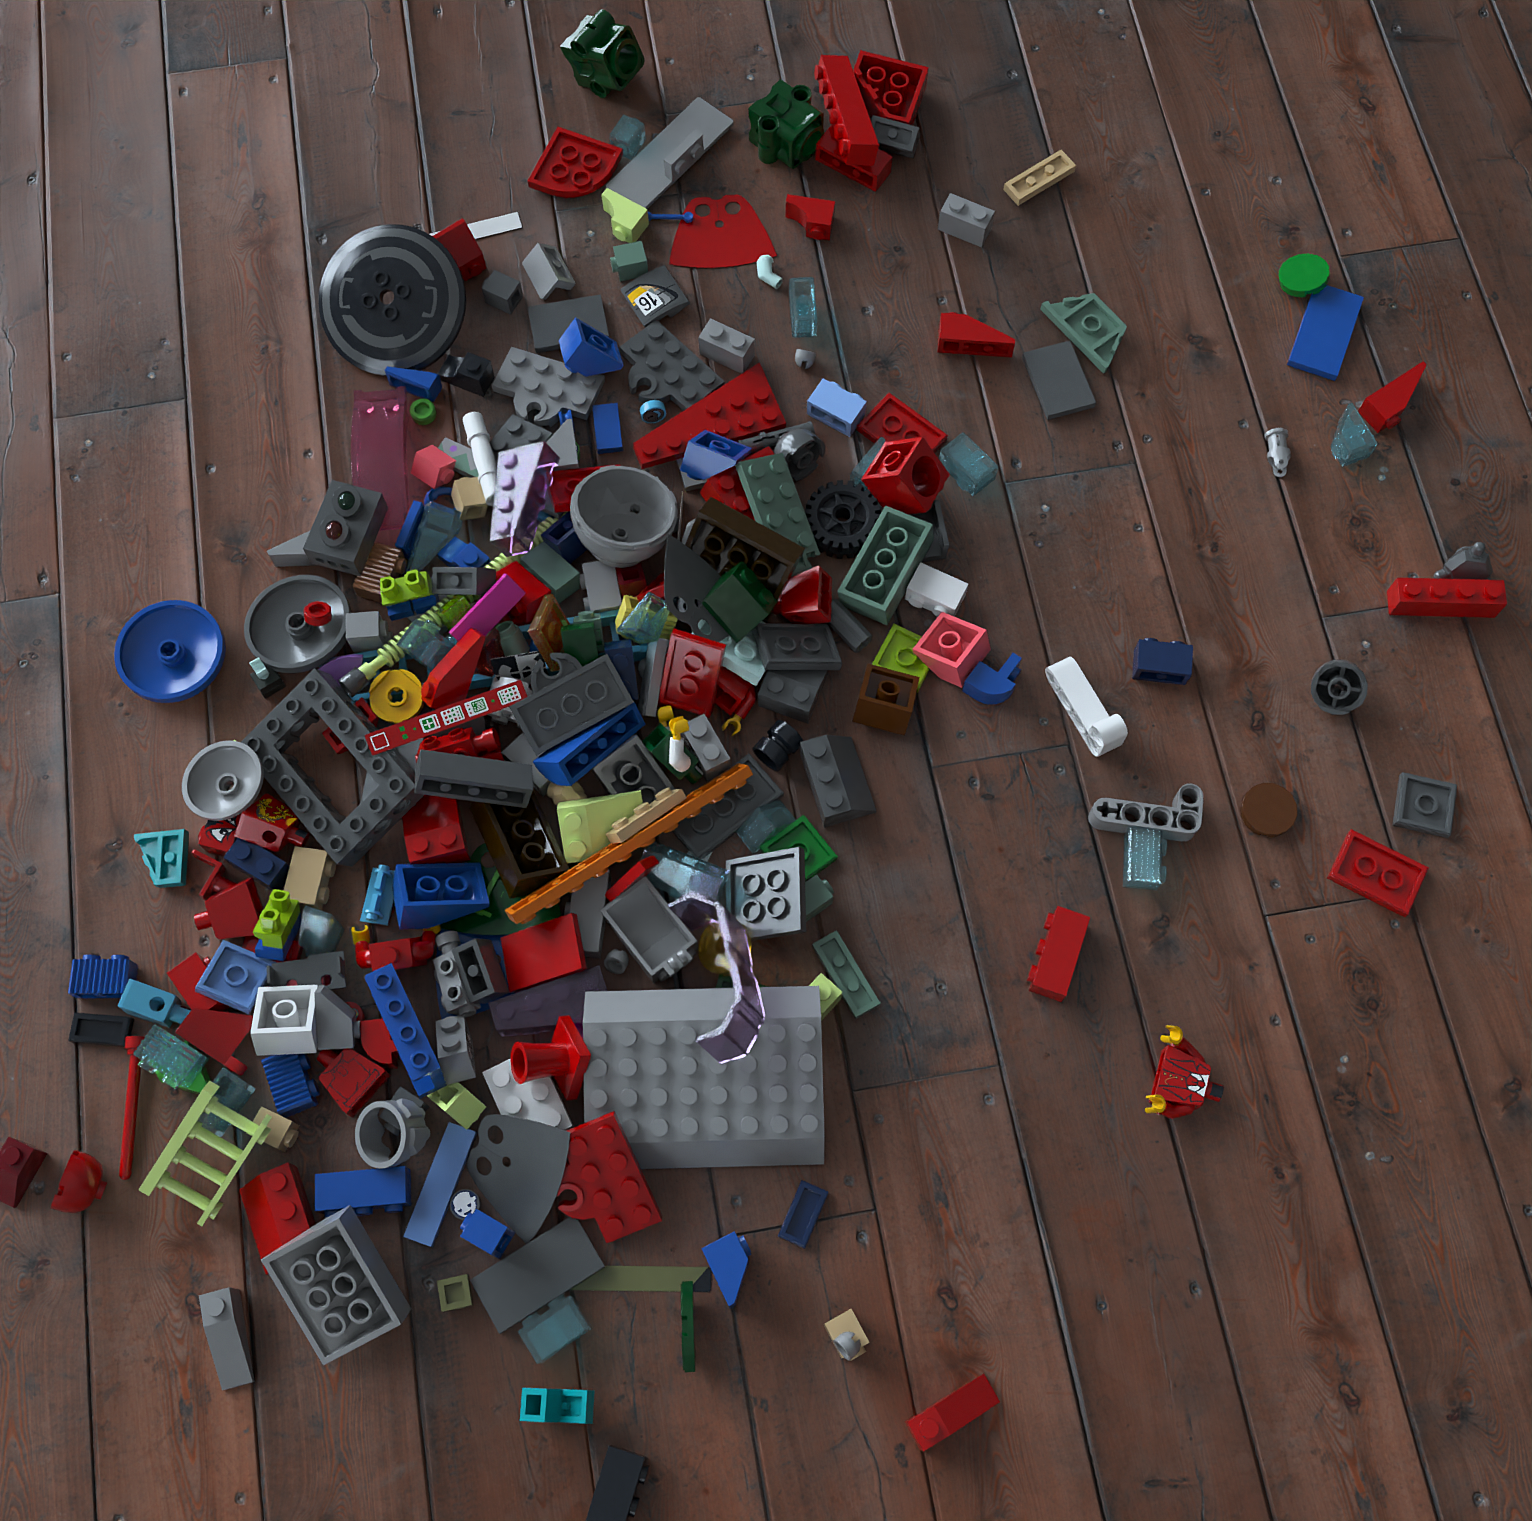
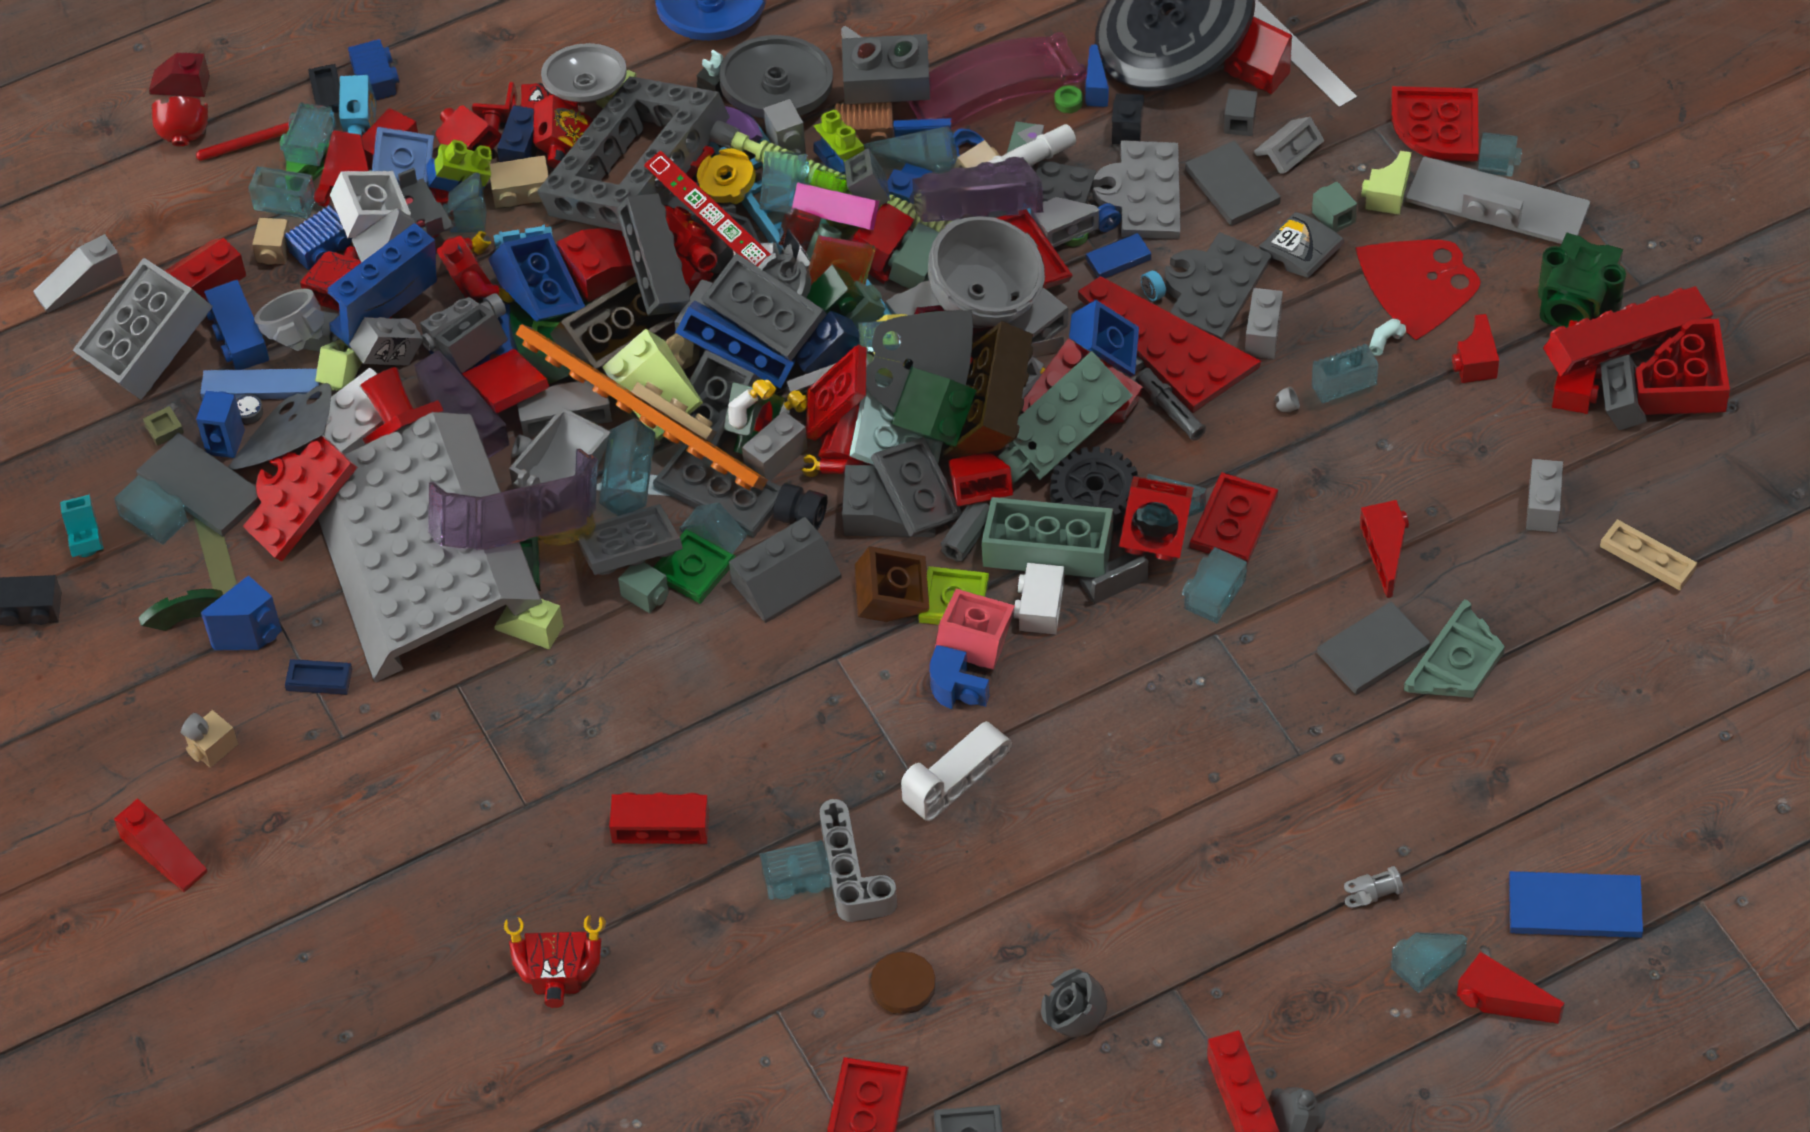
camera: 75 degrees right, 15 degrees down
(165, 856) = (501, 70): teal wing -> none
(192, 1128) = (222, 167): yellowish green fence -> none
(317, 613) = (788, 84): red tile -> none
(433, 466) = (1000, 124): coral brick -> none
(454, 673) = (757, 202): red slope -> none
(589, 350) = (1197, 204): blue slope -> none
(603, 54) = (1582, 89): dark green piece -> none
(635, 874) = (606, 418): red tile -> none
(687, 217) = (1424, 243): blue hinge -> none
(800, 451) = (1151, 422): dark grey cylinder -> none
(836, 407) = (1234, 444): light blue brick -> none
(846, 974) = (573, 640): sand green plate -> none
(1162, 661) = (1042, 832): dark blue brick -> none
(1303, 275) = (1641, 858): green tile -> none

